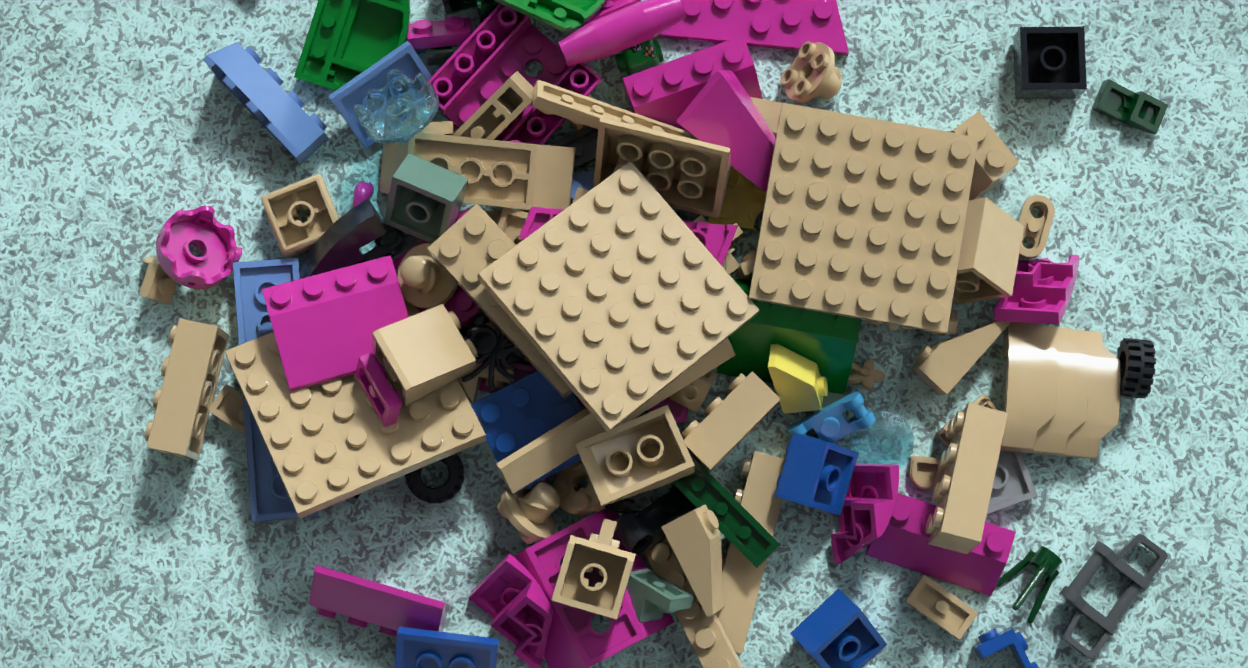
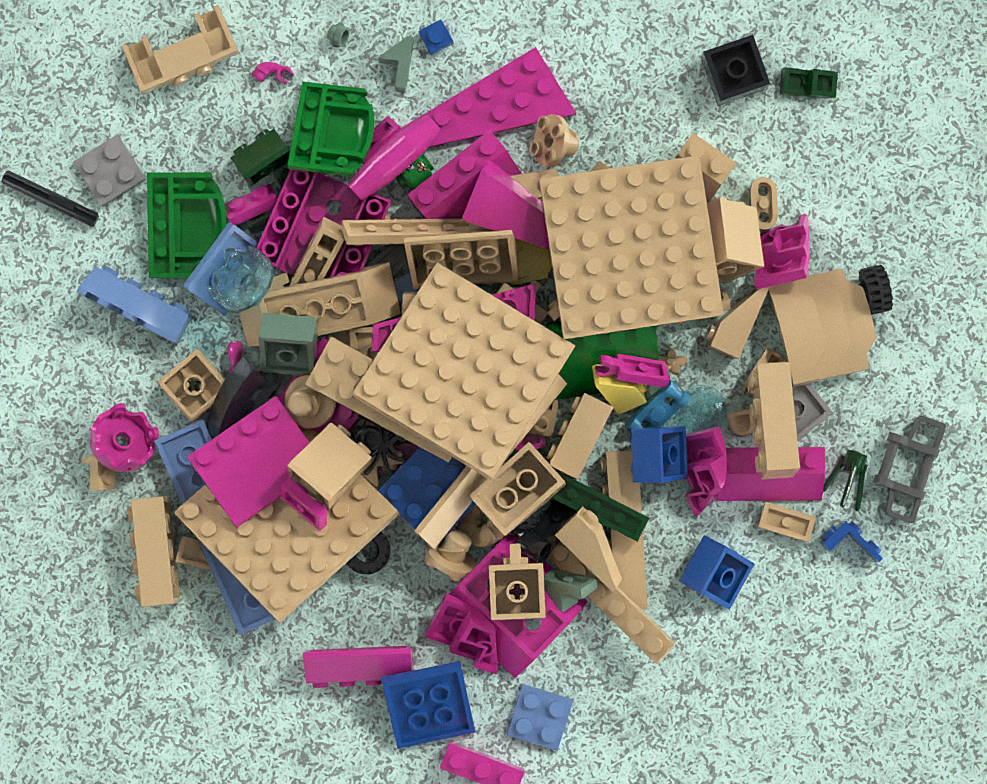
camera: 20 degrees left, 5 degrees up
(819, 364) = (634, 369): none -> dark pink plate

